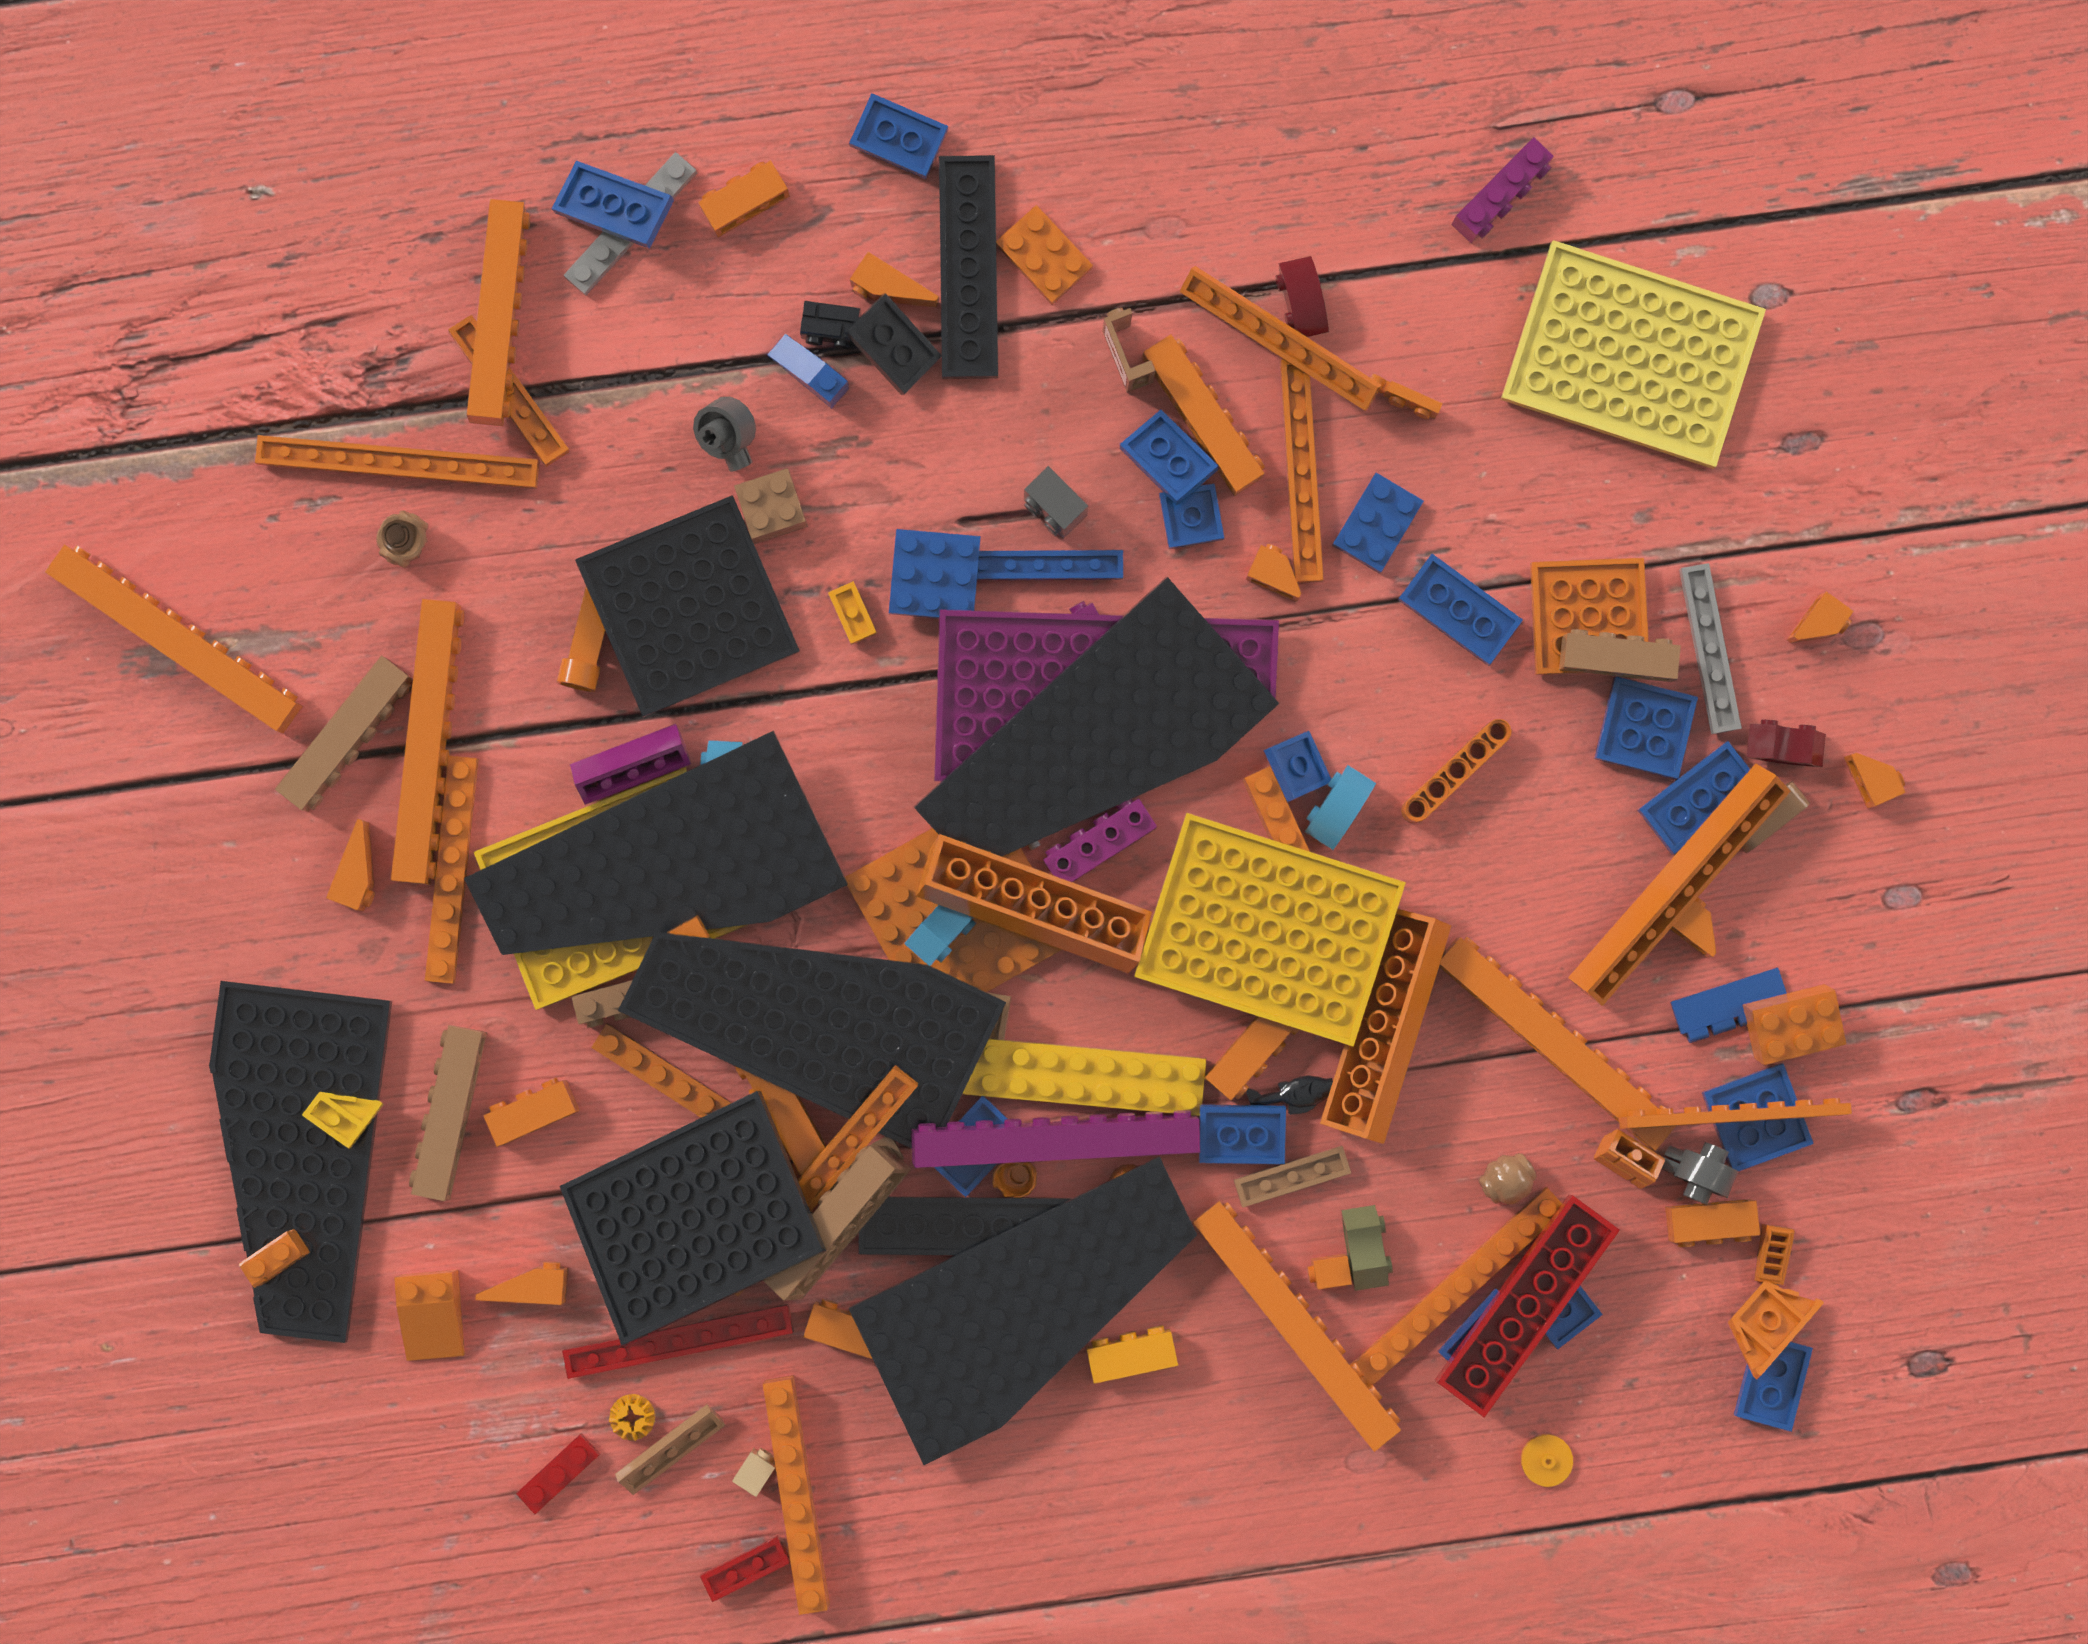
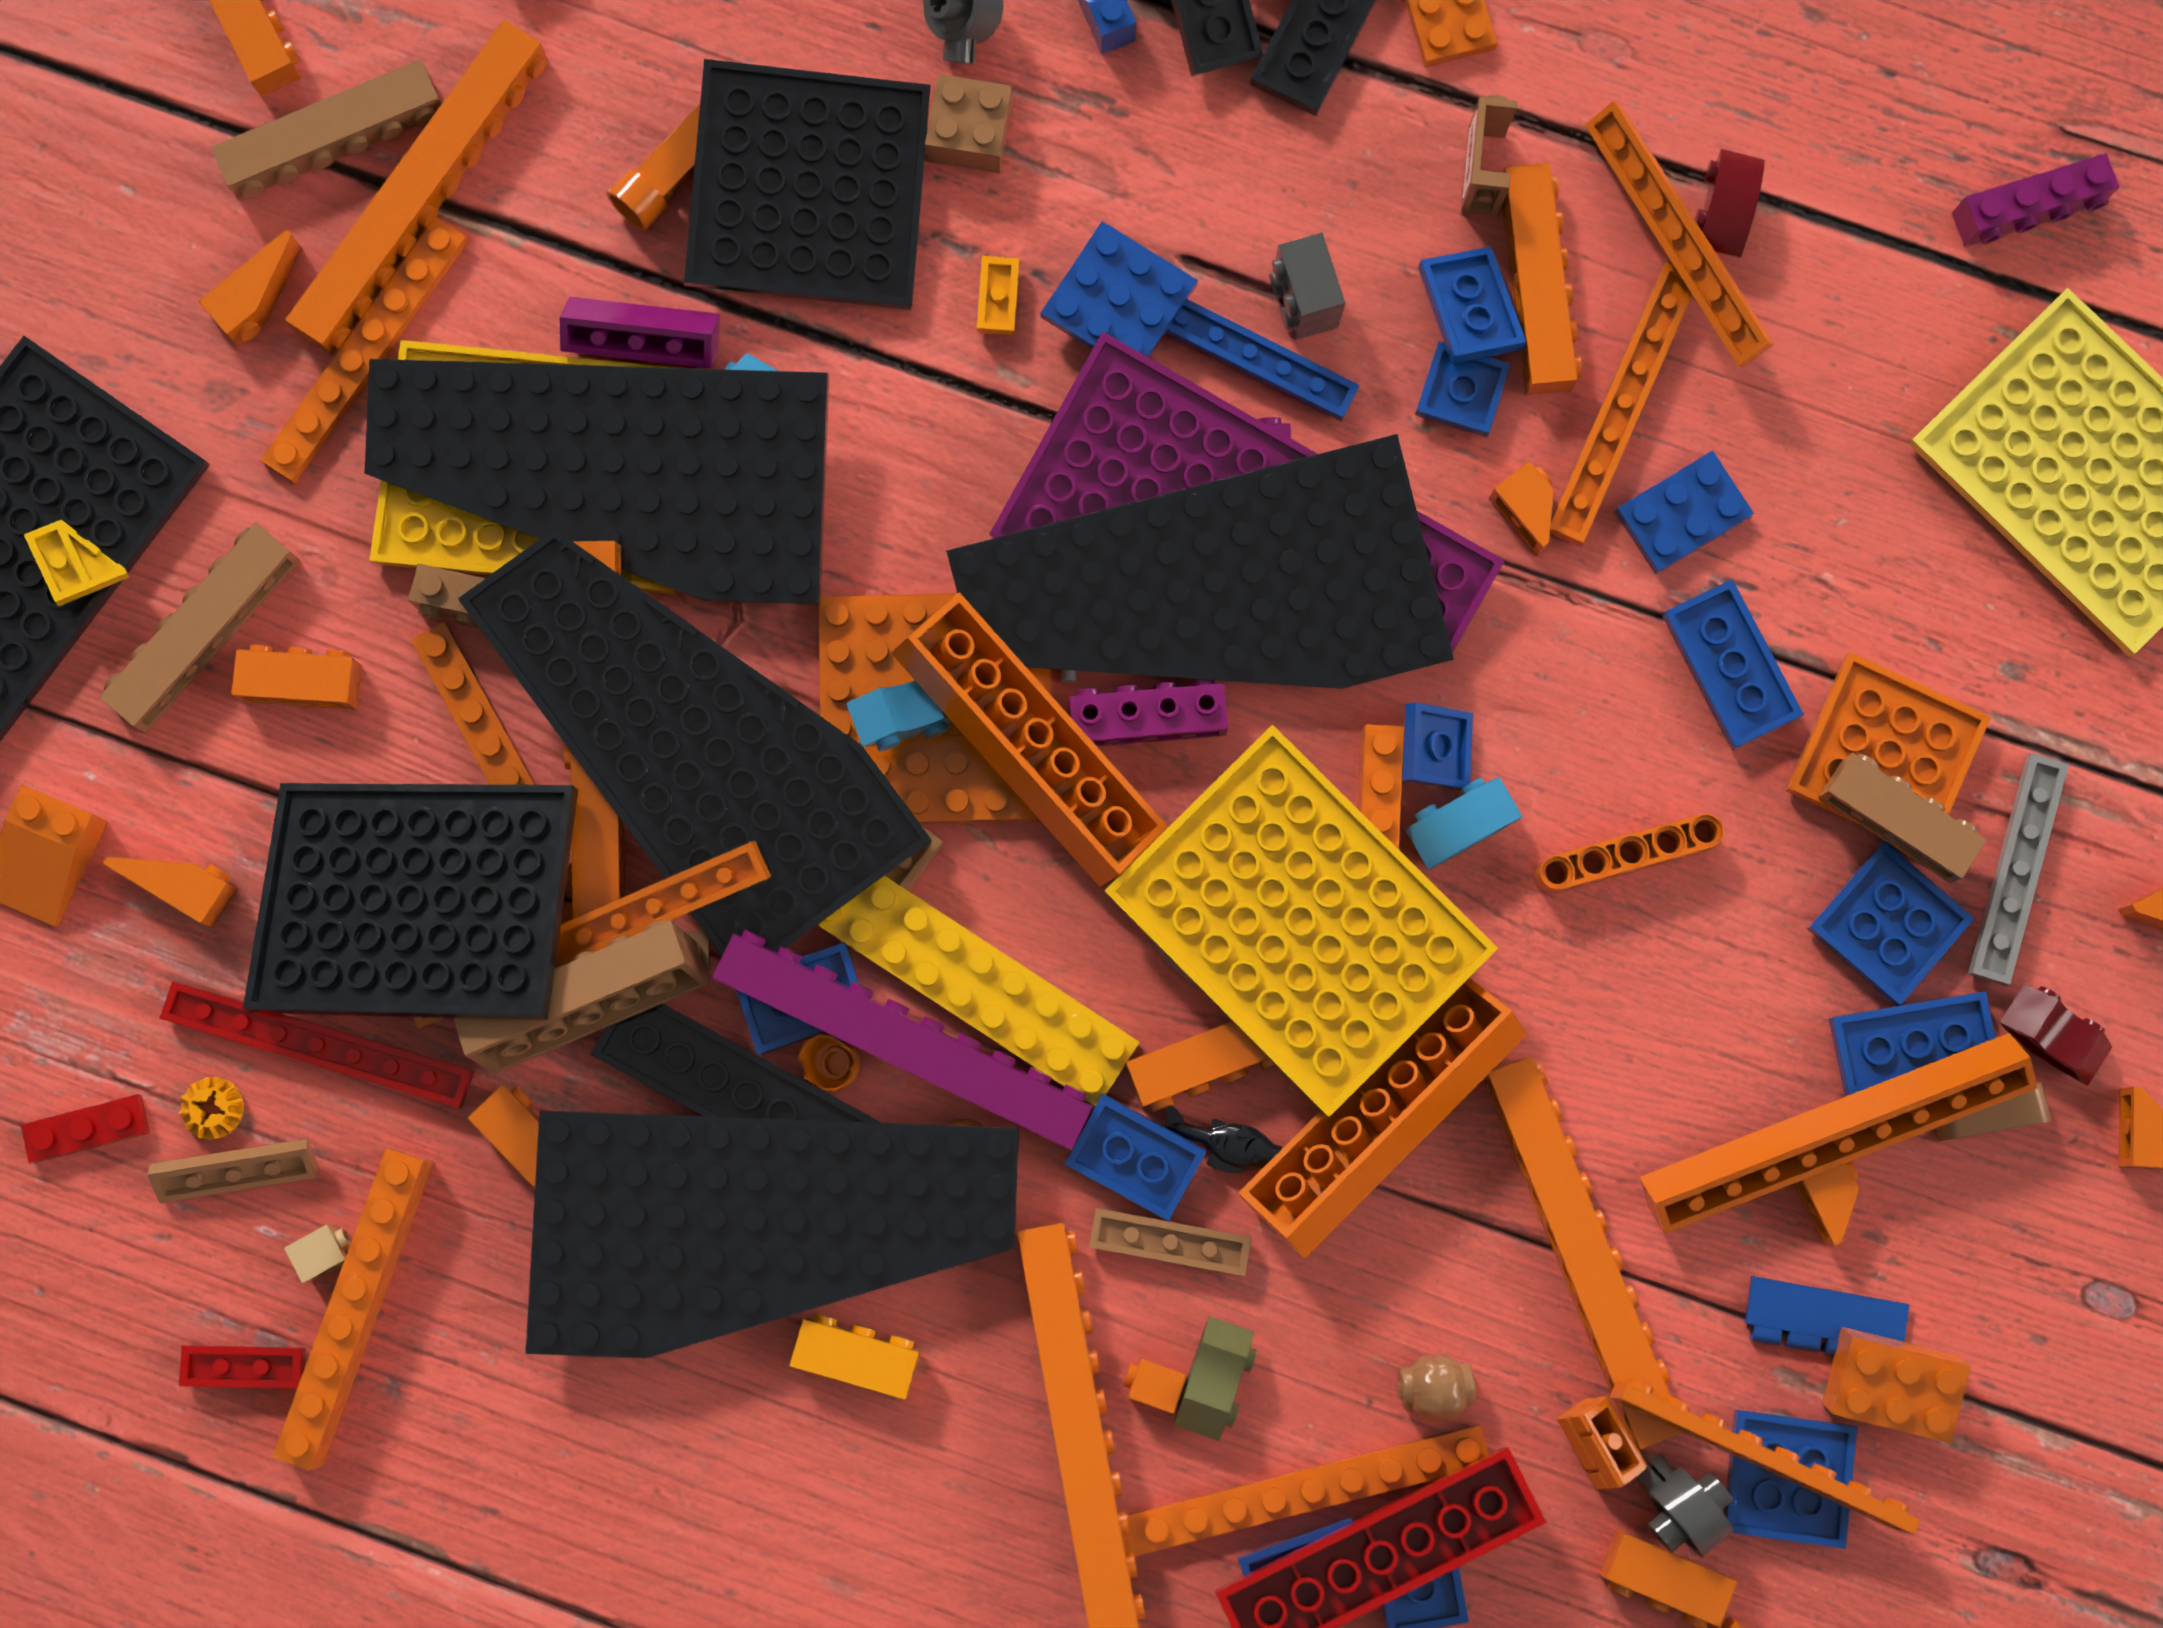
camera: 30 degrees right, 5 degrees down
(1402, 396) = (1793, 379): orange plate -> none

